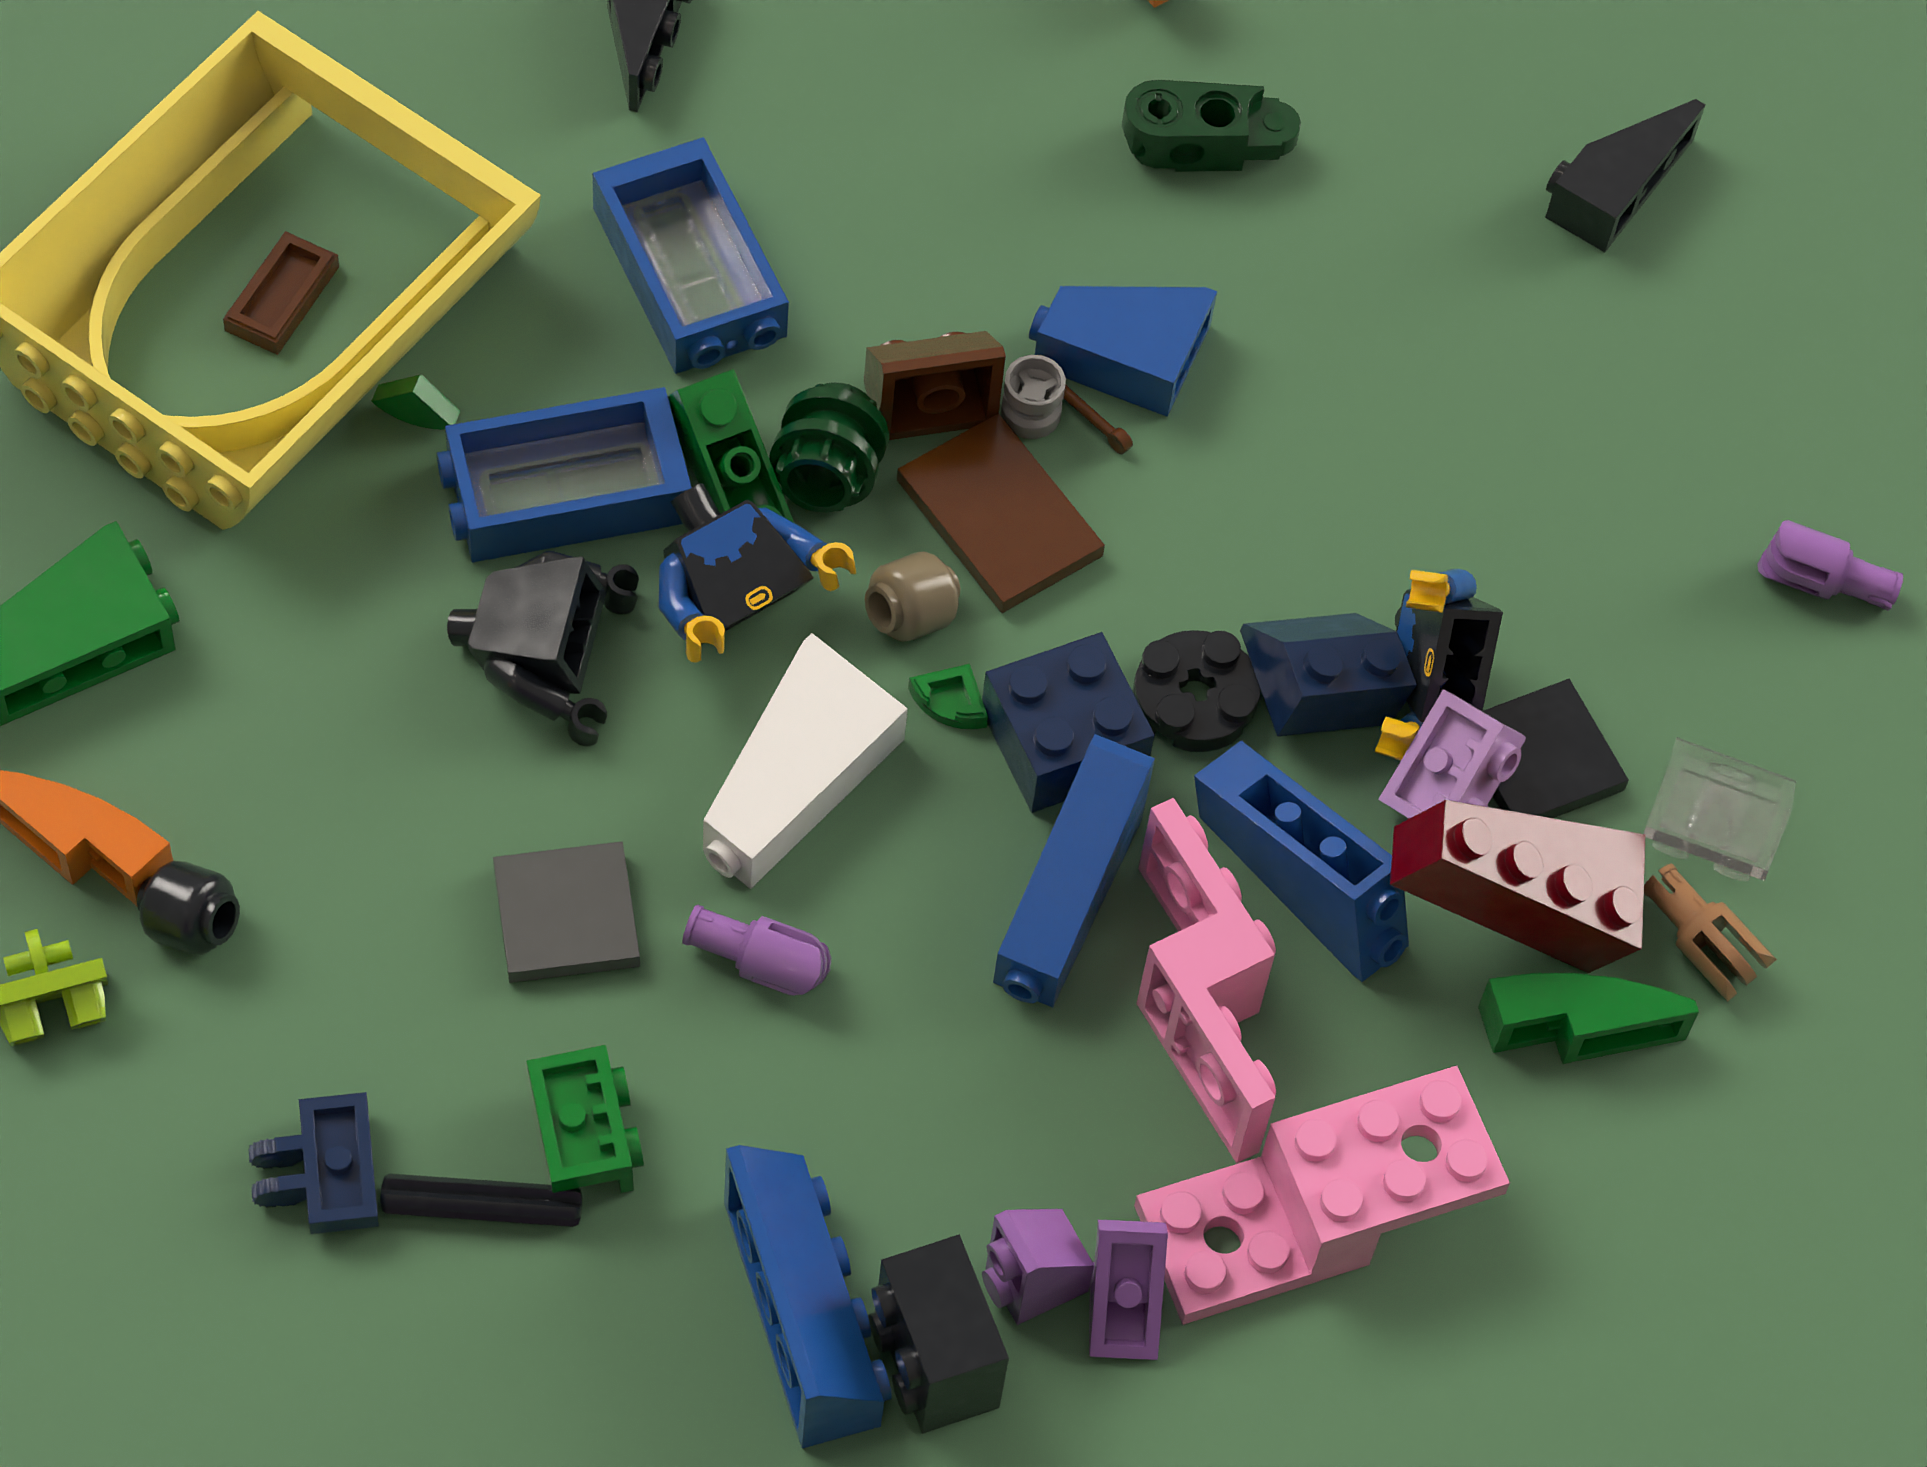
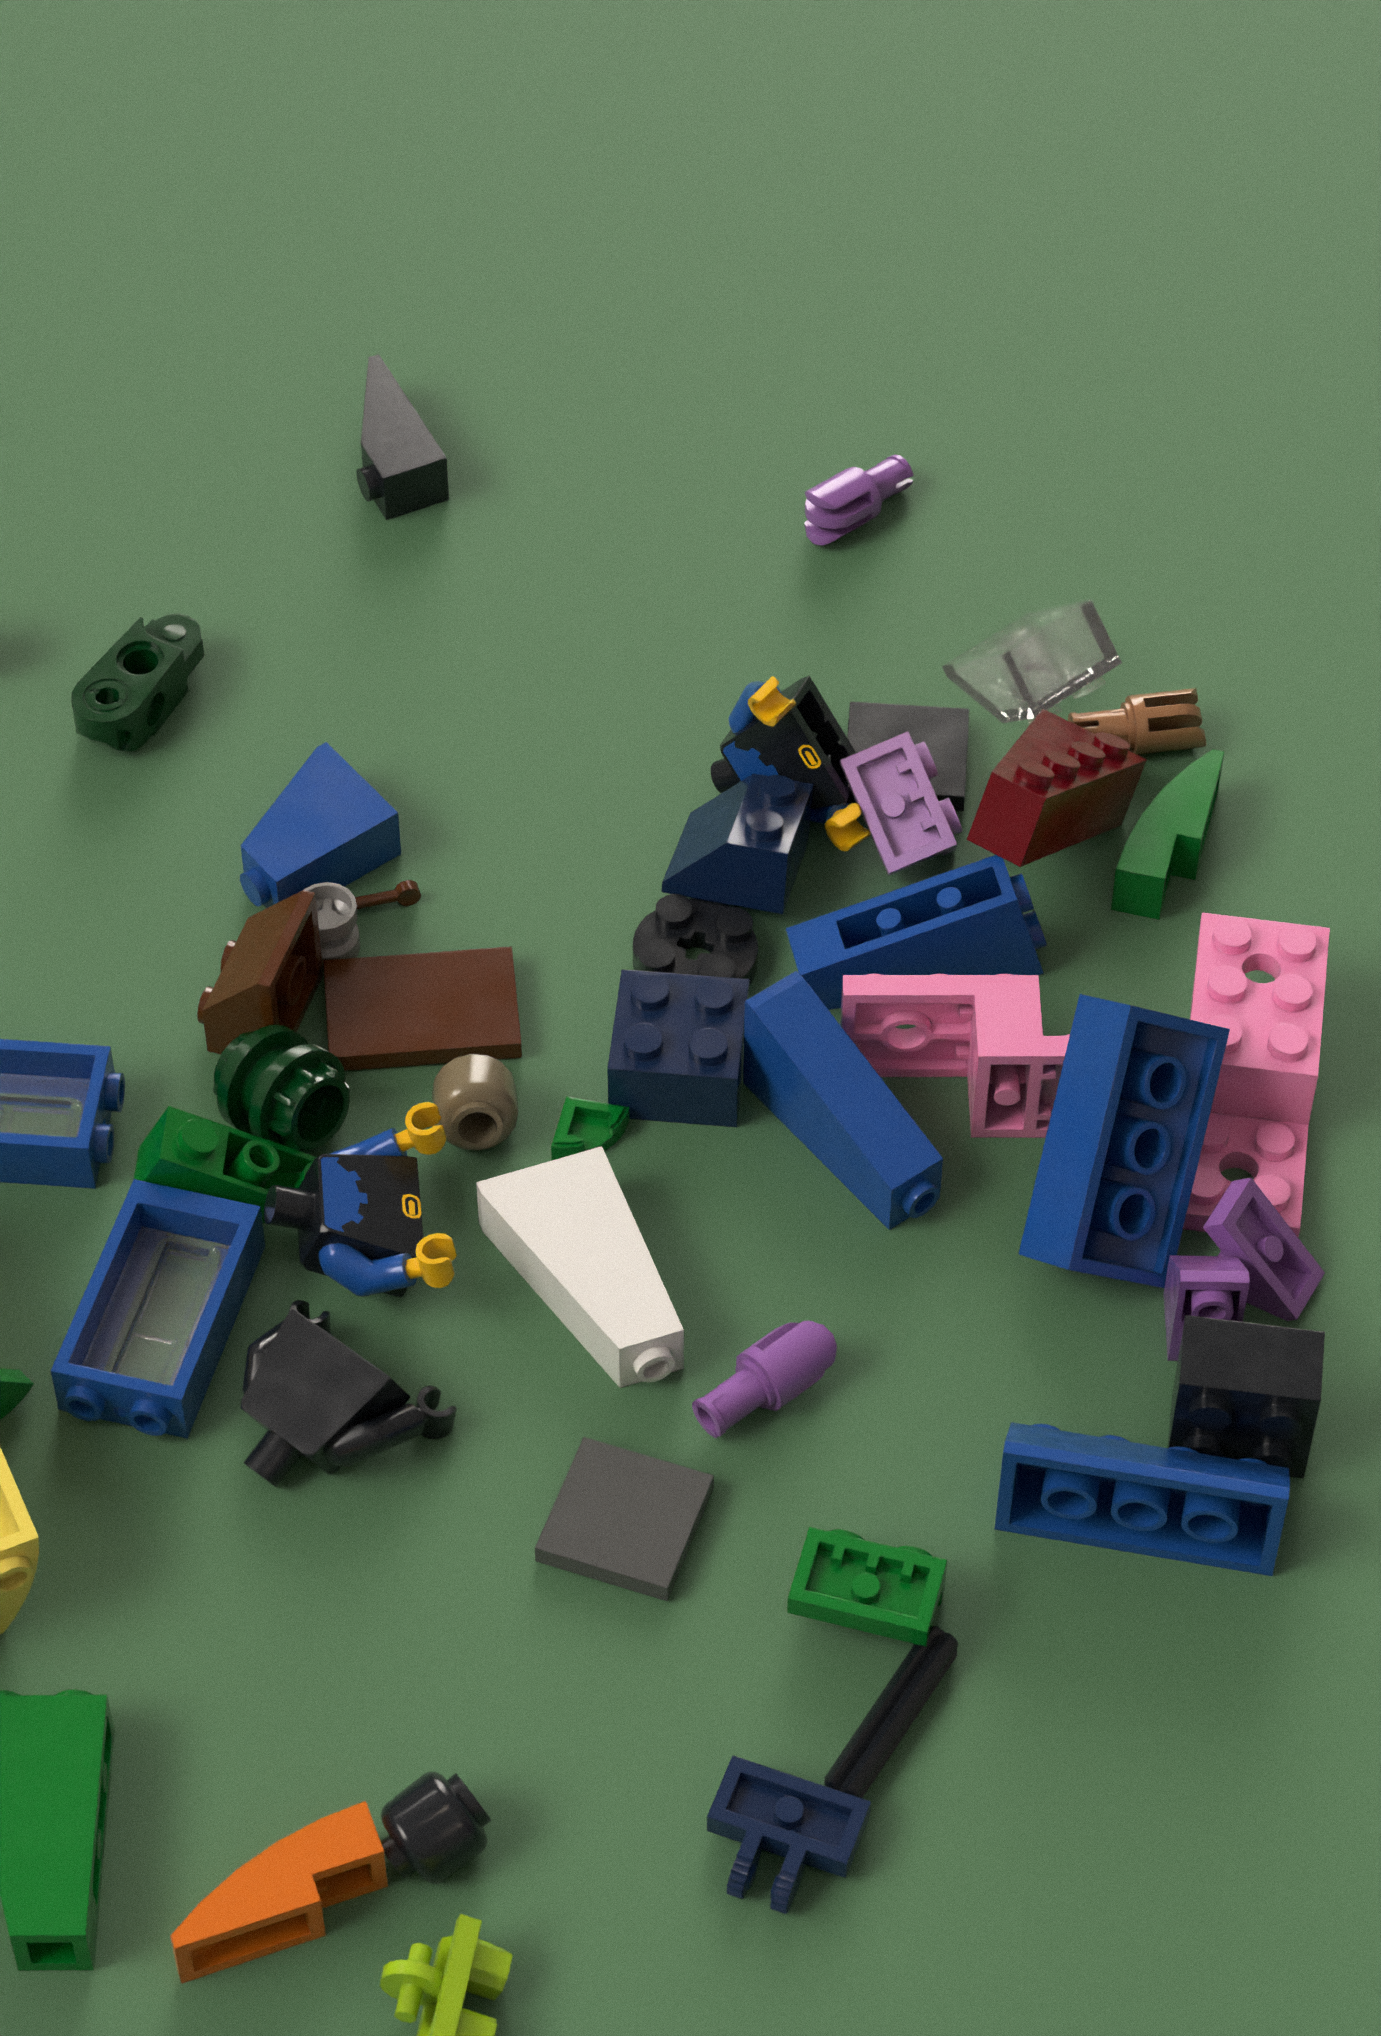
camera: 55 degrees left, 10 degrees down
(1142, 1109) = (1123, 1141): none -> blue slope

